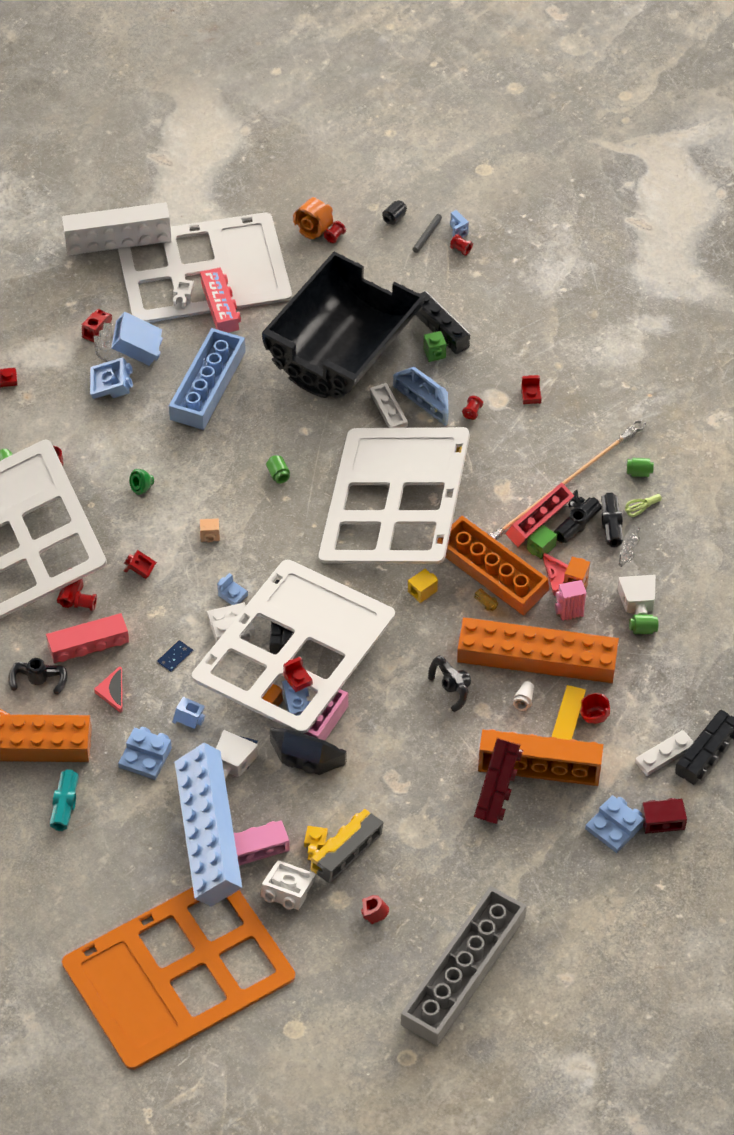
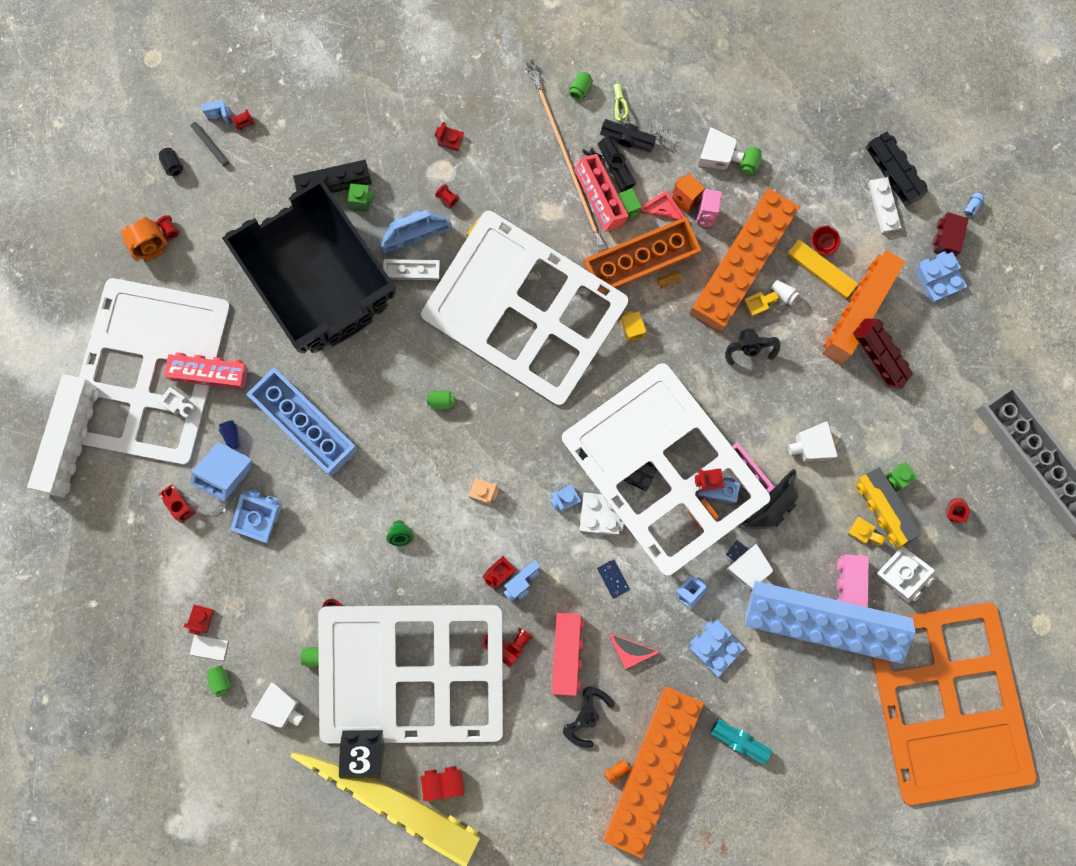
camera: 70 degrees left, 25 degrees up
(138, 577) = (518, 585): none -> light blue plate
(174, 337) = (229, 433): none -> clear blue cone
(382, 767) = (814, 444): none -> white torso
(384, 848) = (901, 476): none -> bright green brick
(500, 677) = (758, 303): none -> yellow plate
(710, 829) = (975, 203): none -> light blue pin

